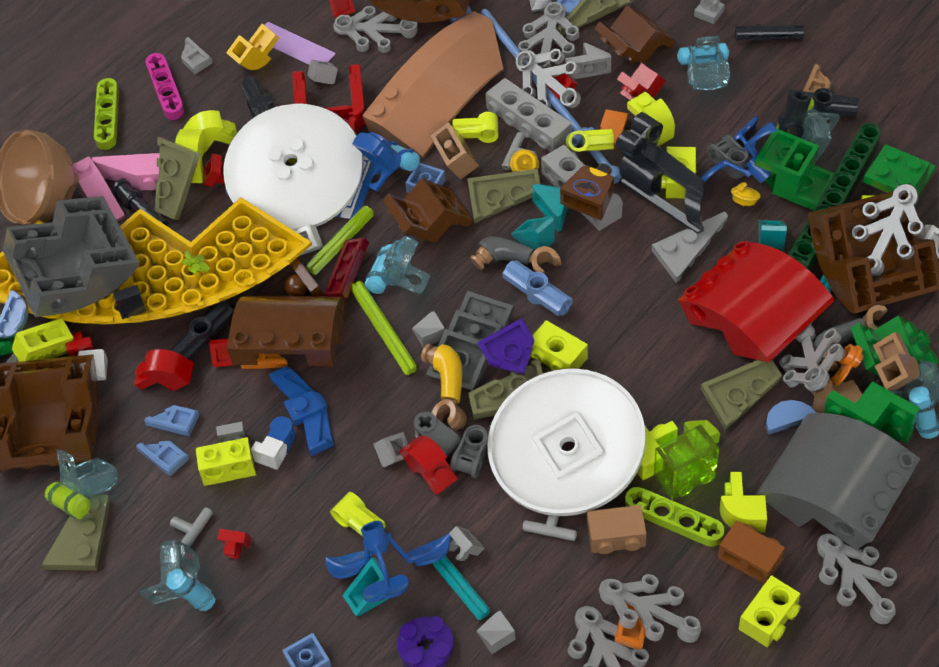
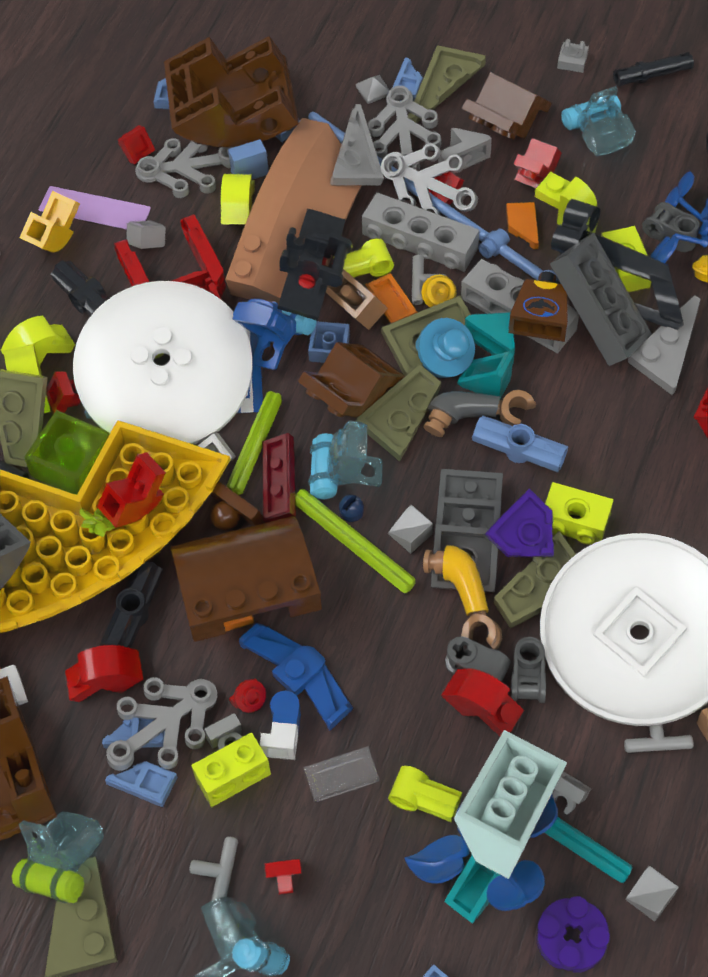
camera: 20 degrees left, 5 degrees up
(129, 302) = (32, 595): black brick -> none
(194, 416) = (164, 719): none -> light grey plant
(196, 210) = (65, 452): none -> clear neon green brick
(219, 353) = (170, 626): red tile -> none
(228, 251) = (134, 496): none -> red brick
(261, 415) = (249, 696): none -> red plate
(305, 488) = (341, 774): none -> clear tile
(389, 447) = (426, 694): light grey slope -> none
(392, 304) = (354, 512): none -> dark blue hinge
(395, 56) = (236, 198): none -> neon yellow brick
(402, 528) = (507, 802): none -> light aqua slope
(417, 33) = (249, 159): none -> medium blue piece
(428, 116) = (306, 263): none -> black piece
(457, 243) = (400, 411): none -> olive wing
(486, 158) = (393, 297): none -> orange tile
(502, 49) = (357, 157): none -> light grey wing
(510, 204) = (445, 347): none -> dark azure plate
(592, 140) = (510, 245): neon yellow piece -> none
(640, 194) = (601, 299): none -> dark grey slope

